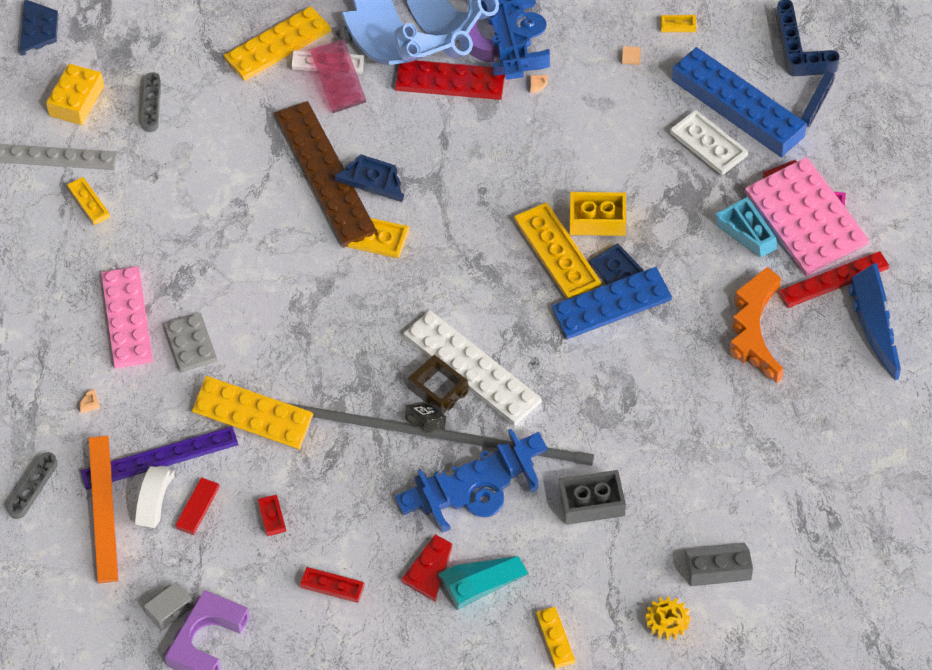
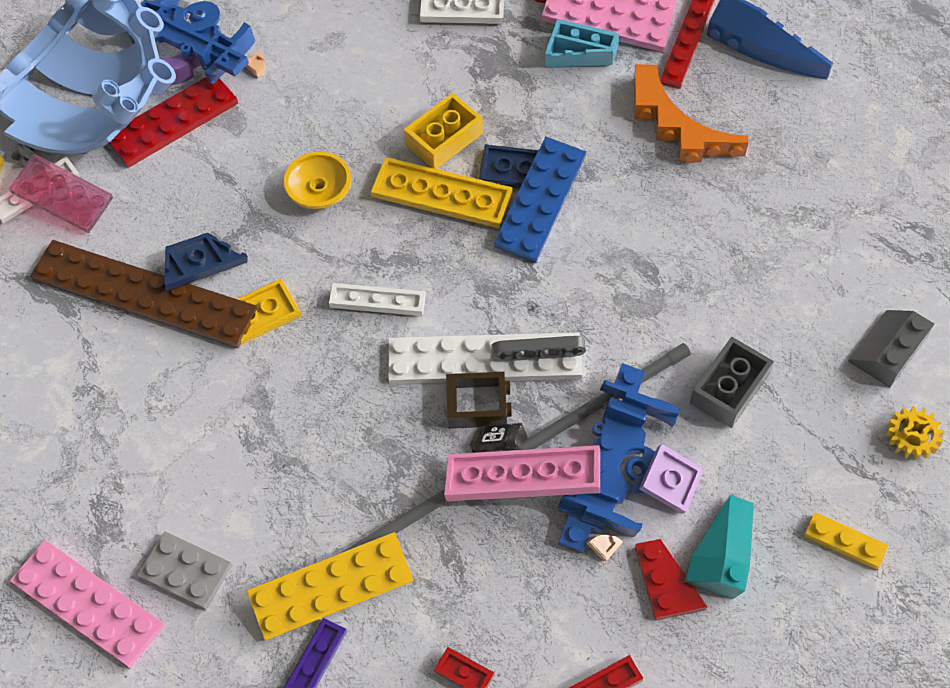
camera: 45 degrees left, 5 degrees up
(411, 440) = (523, 473): none -> bright pink plate
(418, 520) = (604, 545): none -> light nougat tile
(448, 283) = (377, 299): none -> white plate
(489, 183) = (314, 172): none -> yellow dish
(494, 517) = (671, 479): none -> lavender plate
(501, 383) = (538, 348): none -> dark grey beam

